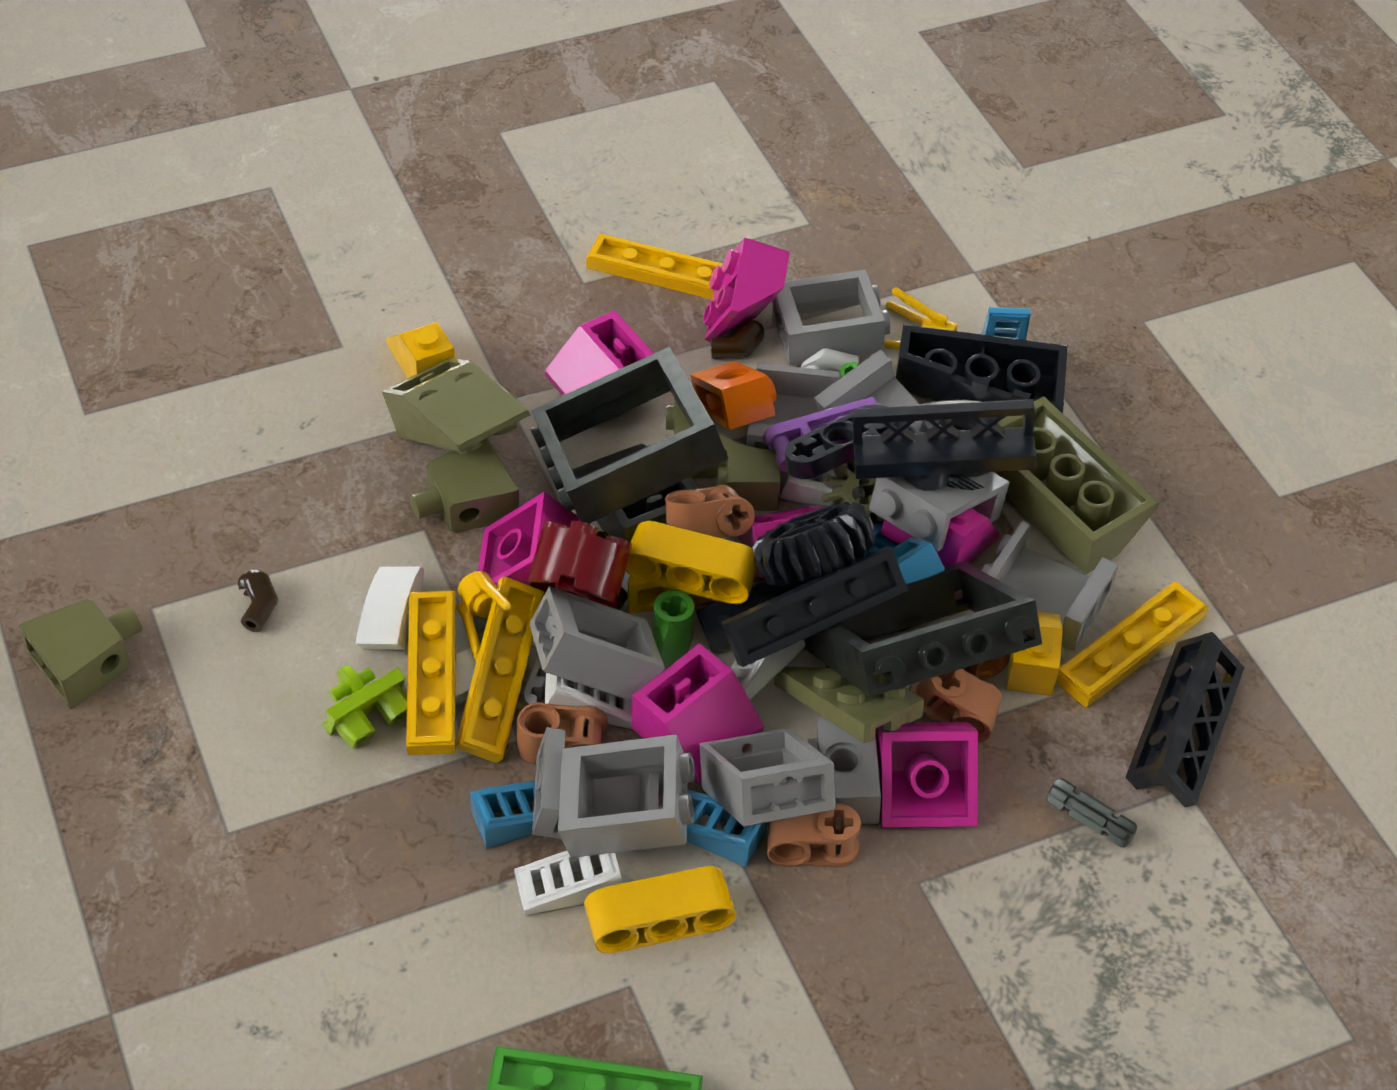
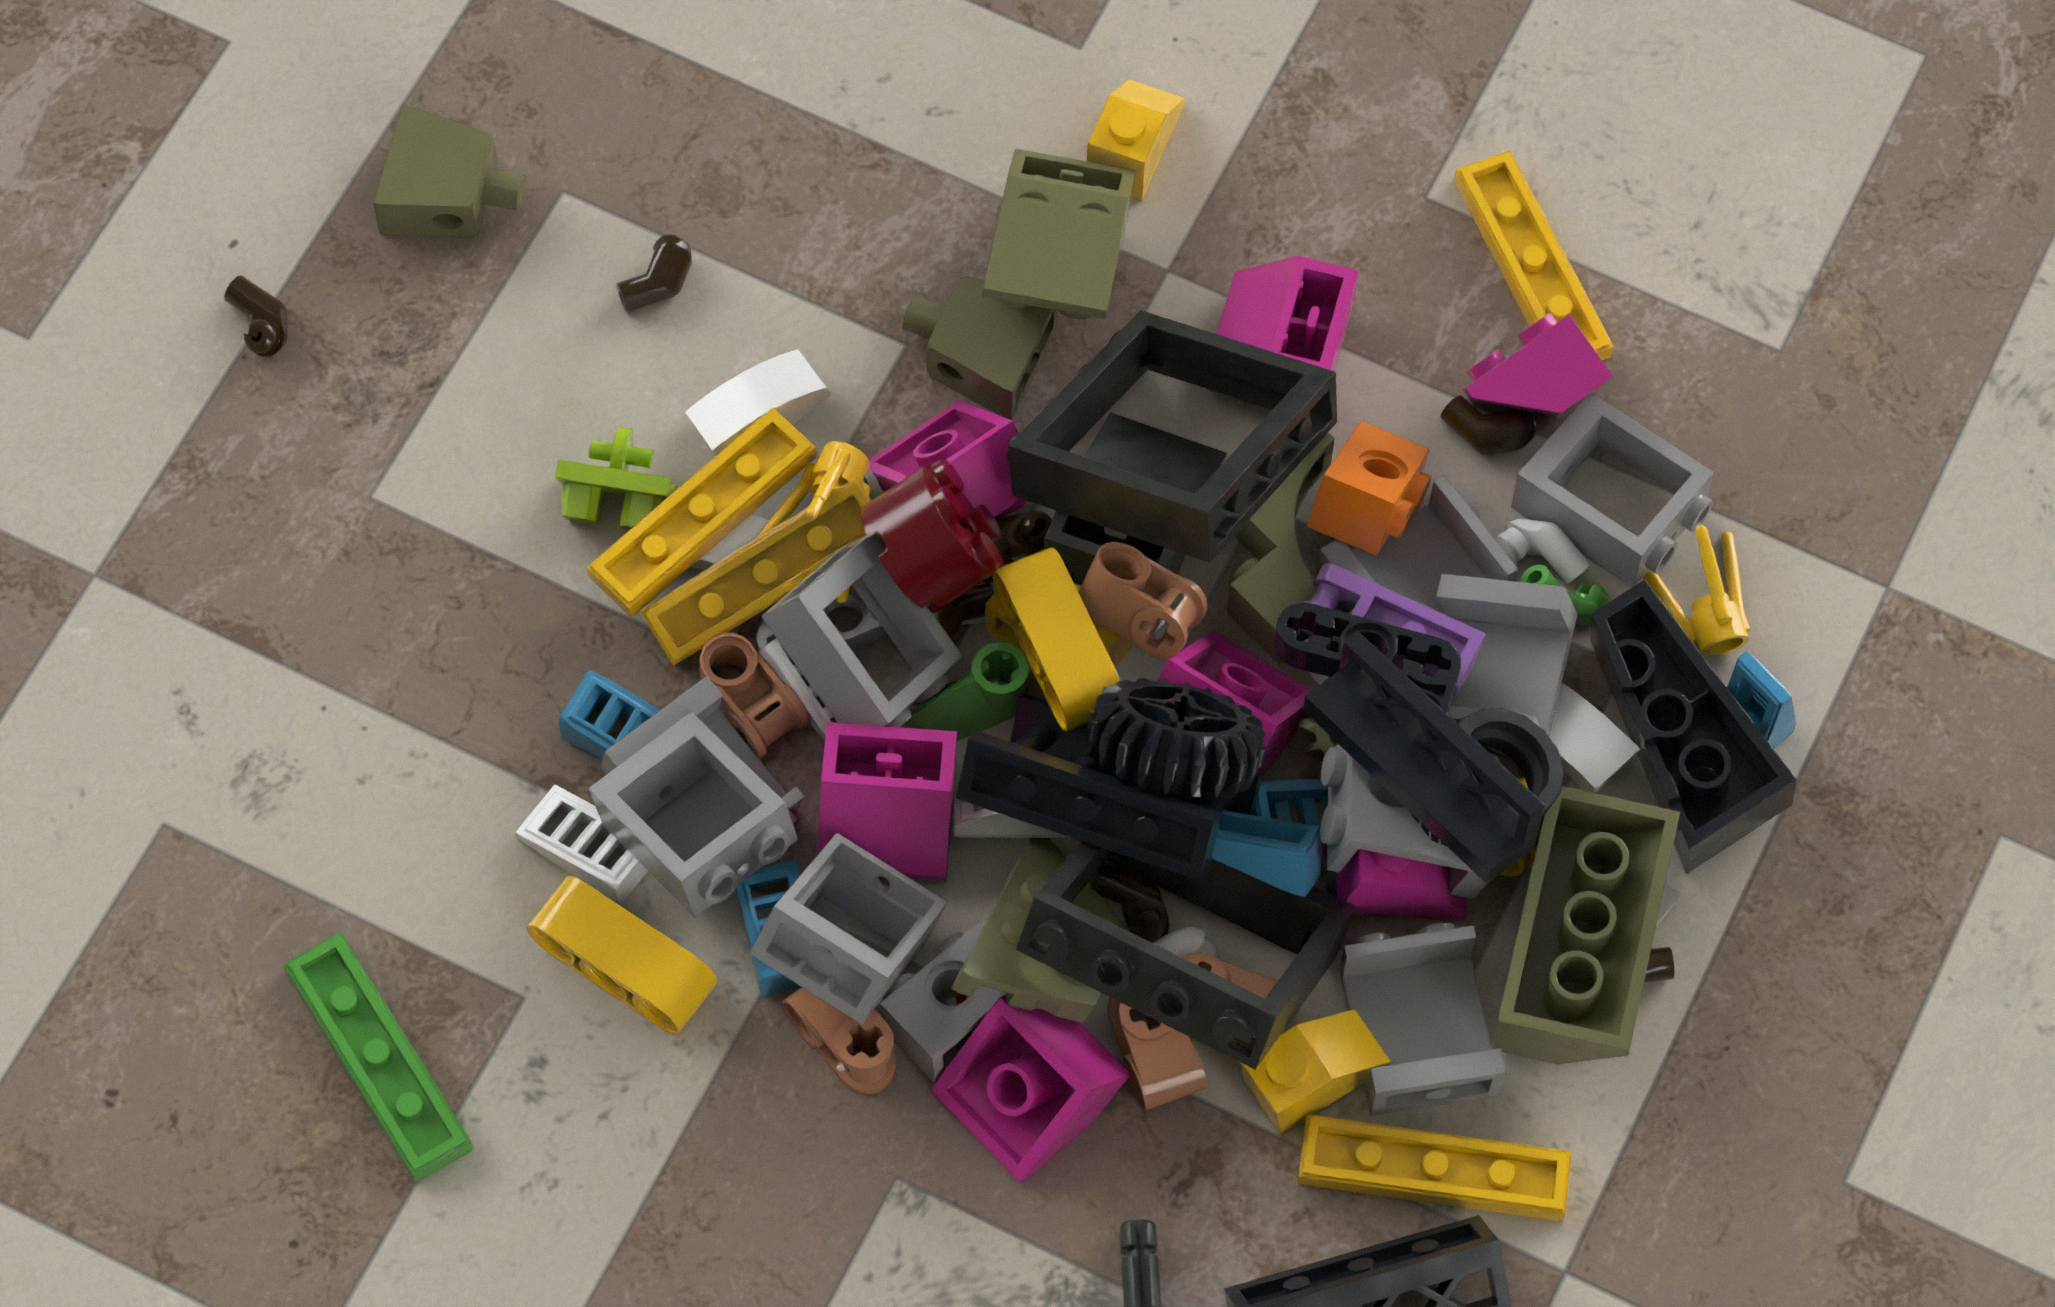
camera: 50 degrees right, 15 degrees up
(54, 796) = (266, 316): none -> dark brown arm

